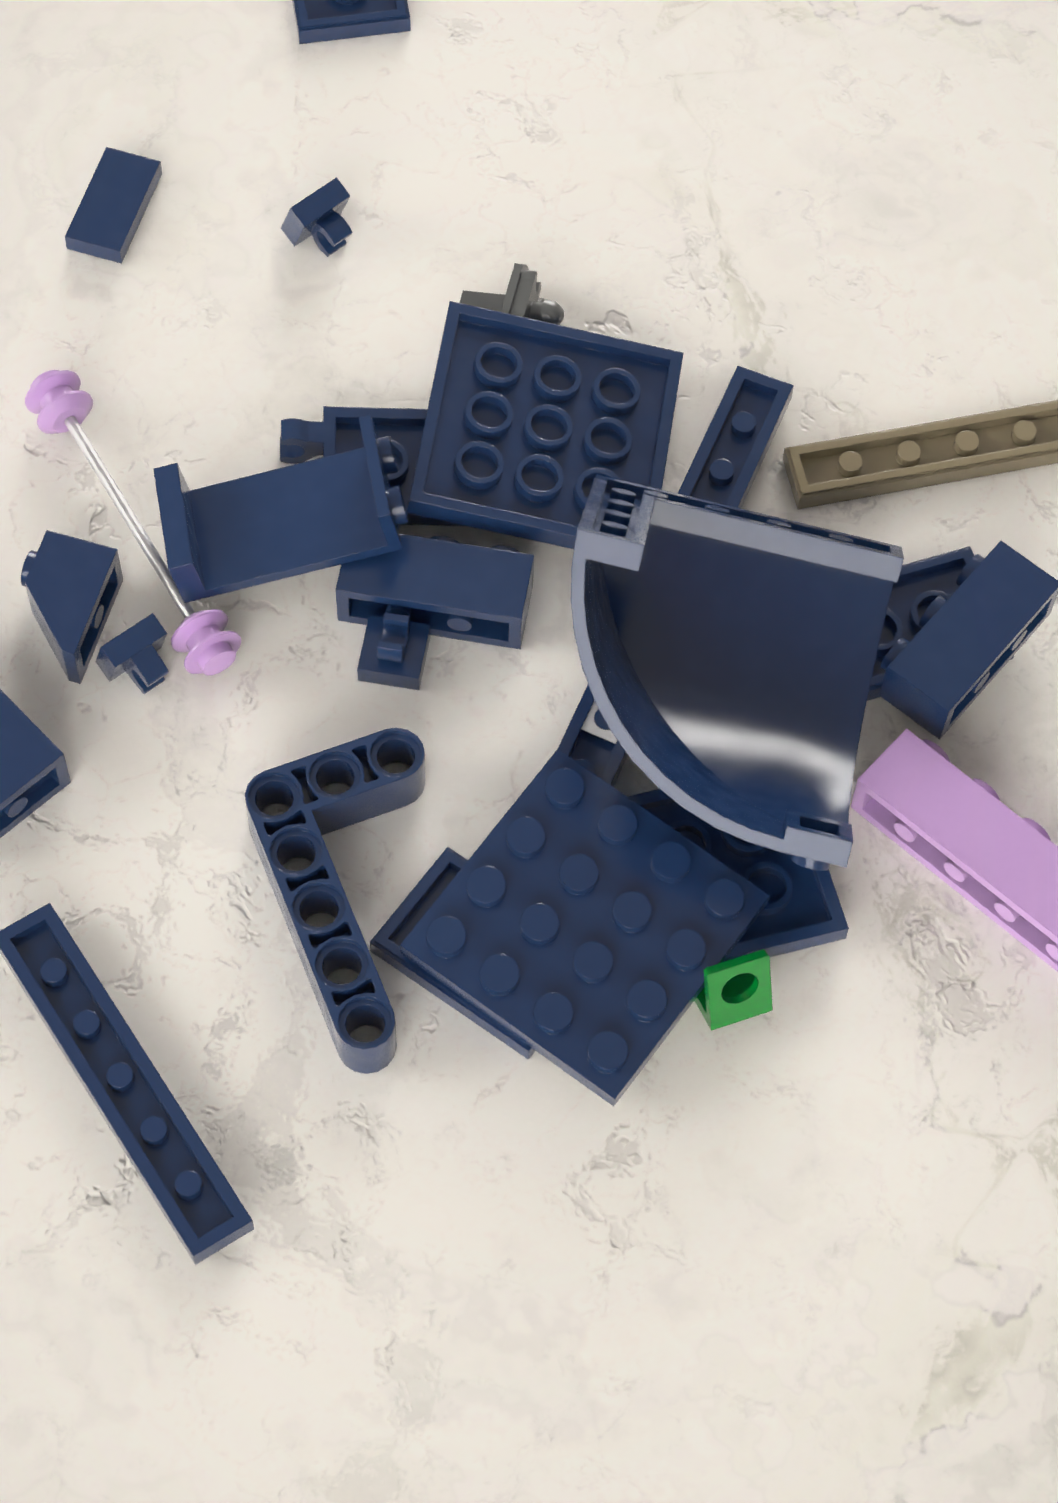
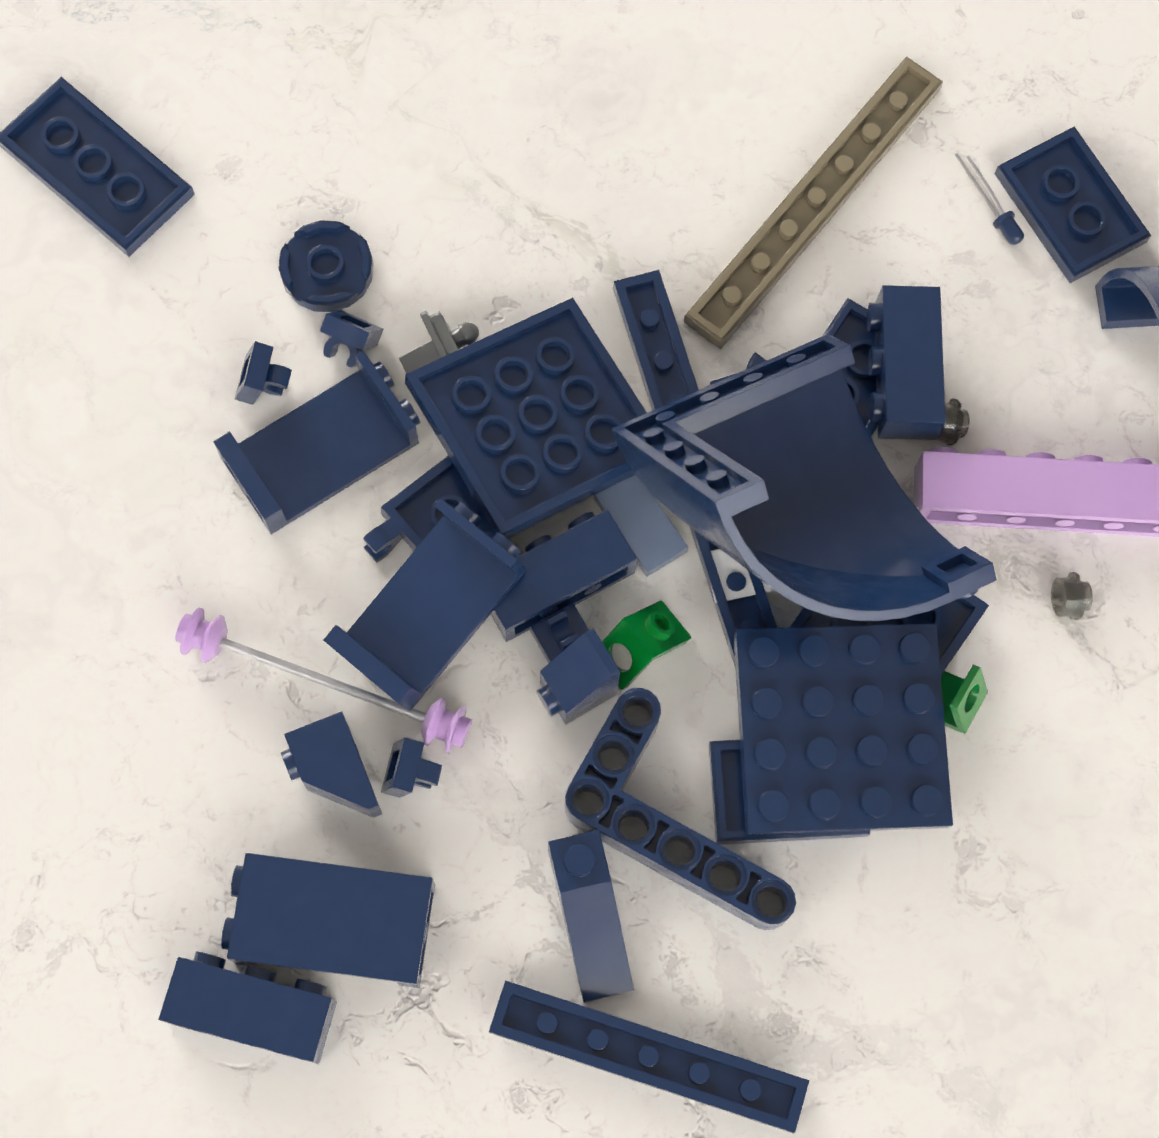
camera: 40 degrees left, 10 degrees up
(113, 205) = (109, 465): dark blue tile -> none
(185, 907) = (590, 915): none -> dark blue slope
(318, 322) = (321, 445): none -> dark blue panel
(366, 685) = (579, 678): none -> dark blue slope
(440, 240) = (352, 332): none -> dark blue tile
(470, 702) = (647, 637): none -> green bracket
(474, 171) = (326, 266): none -> dark blue tile
(552, 622) = (642, 524): none -> sand blue tile
(949, 989) = (1071, 596): none -> clear smoke plate
(970, 733) = (956, 423): none -> clear smoke plate

